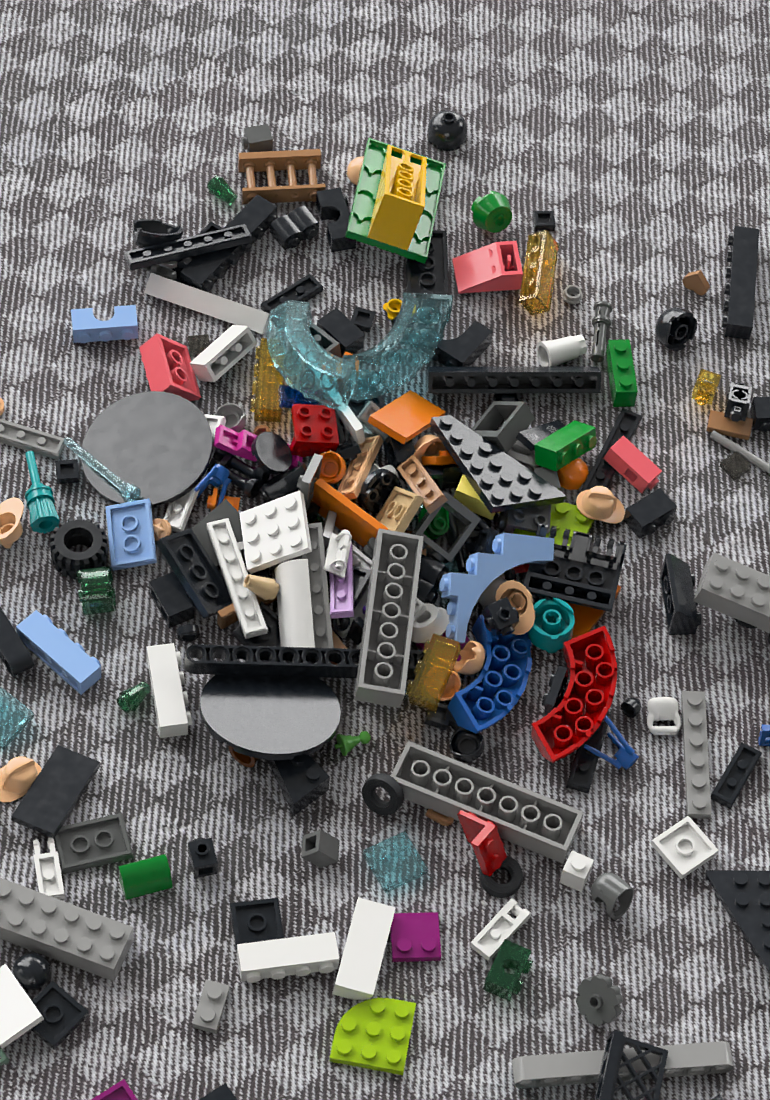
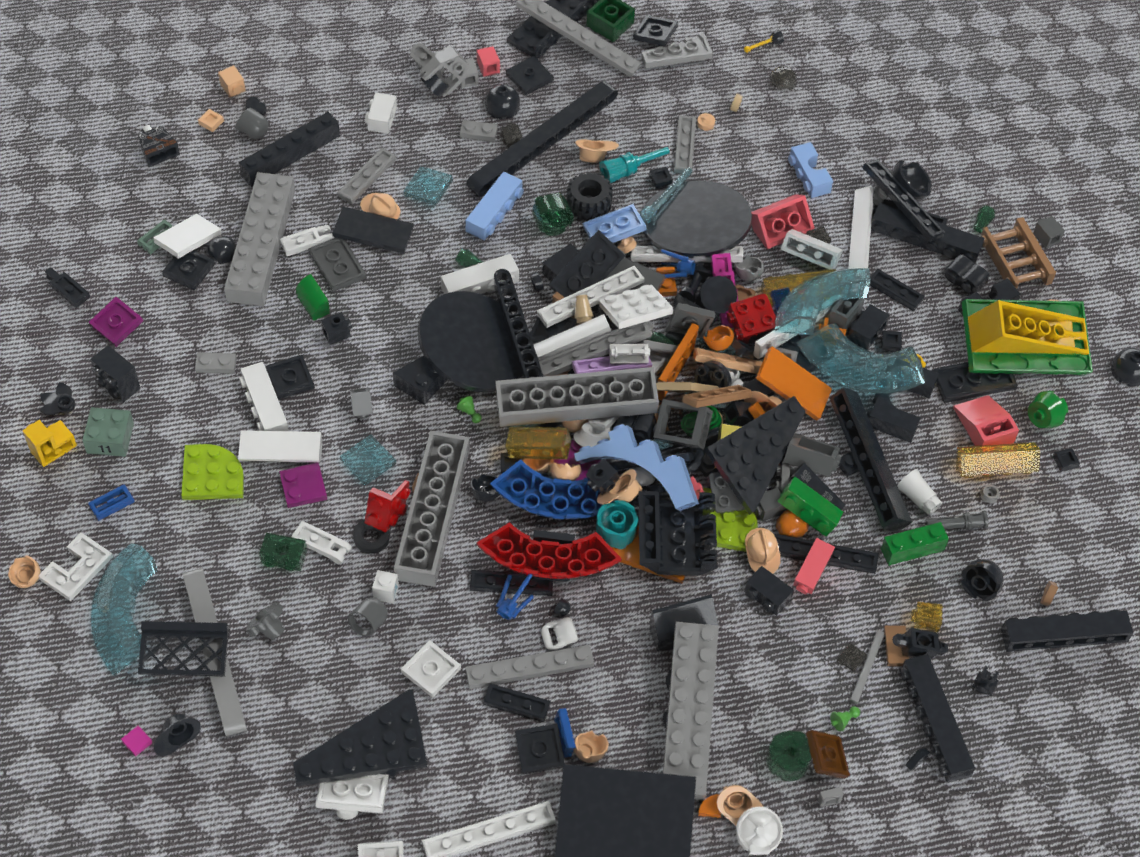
camera: 80 degrees right, 0 degrees up
(391, 786) = (420, 433): black tyre -> none

